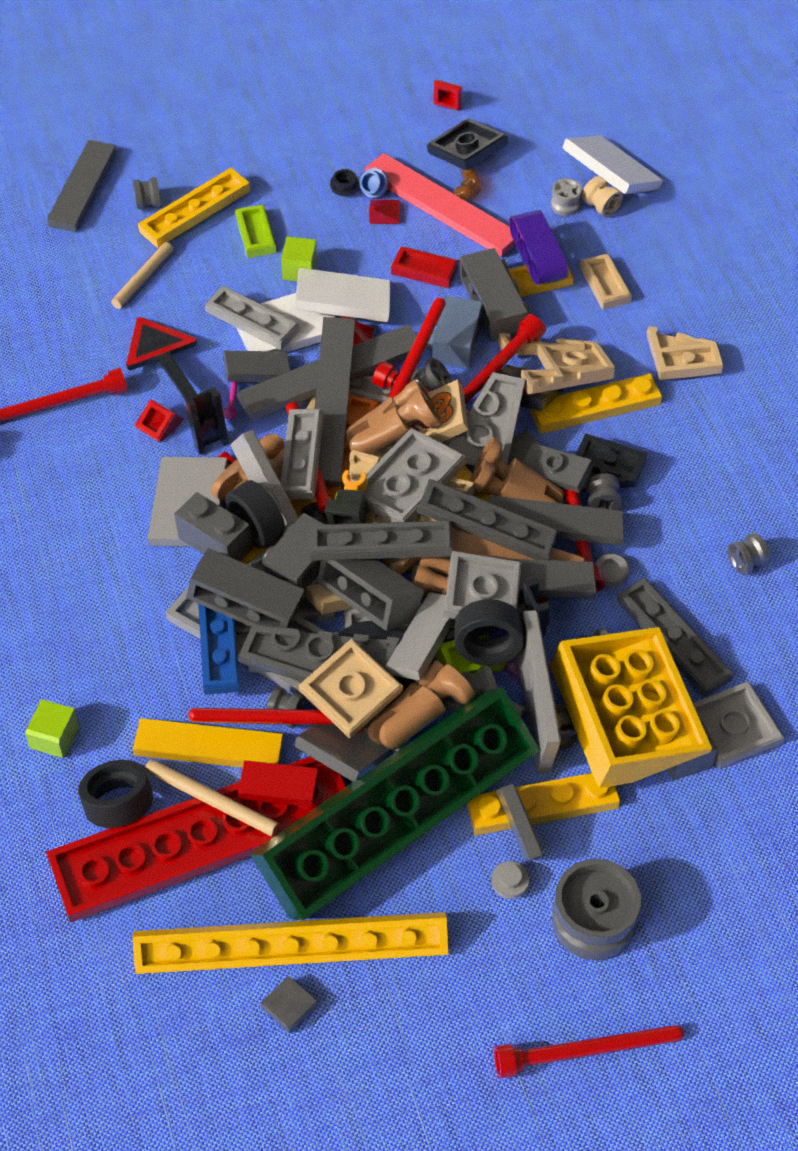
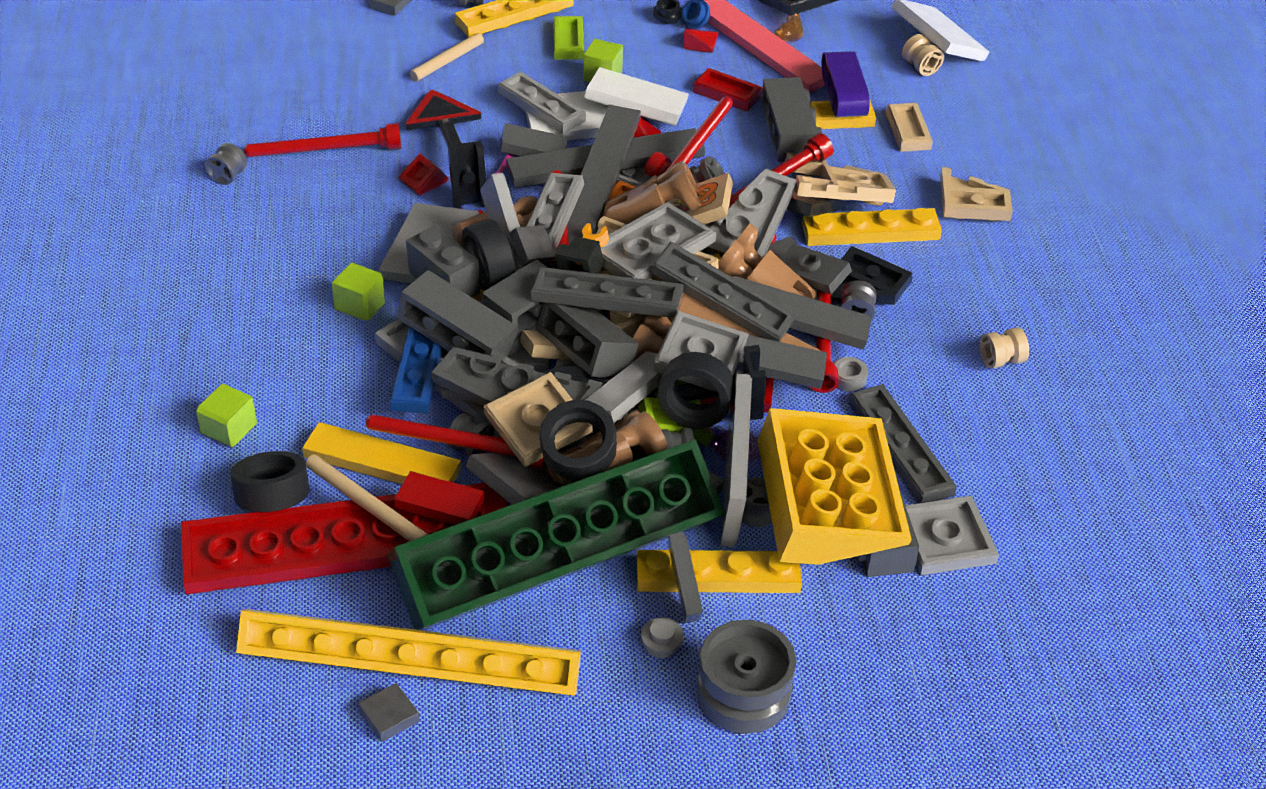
camera: 10 degrees right, 10 degrees down
(136, 568) = (358, 291): none -> lime piece
(295, 497) = (532, 244): none -> flat silver tile
(394, 681) = (583, 412): none -> black tyre
(456, 332) = (743, 143): sand blue brick -> none
(566, 197) = (886, 51): light grey wheel -> none
(744, 519) = (1002, 348): none -> tan wheel
(748, 553) = (999, 379): flat silver wheel -> none

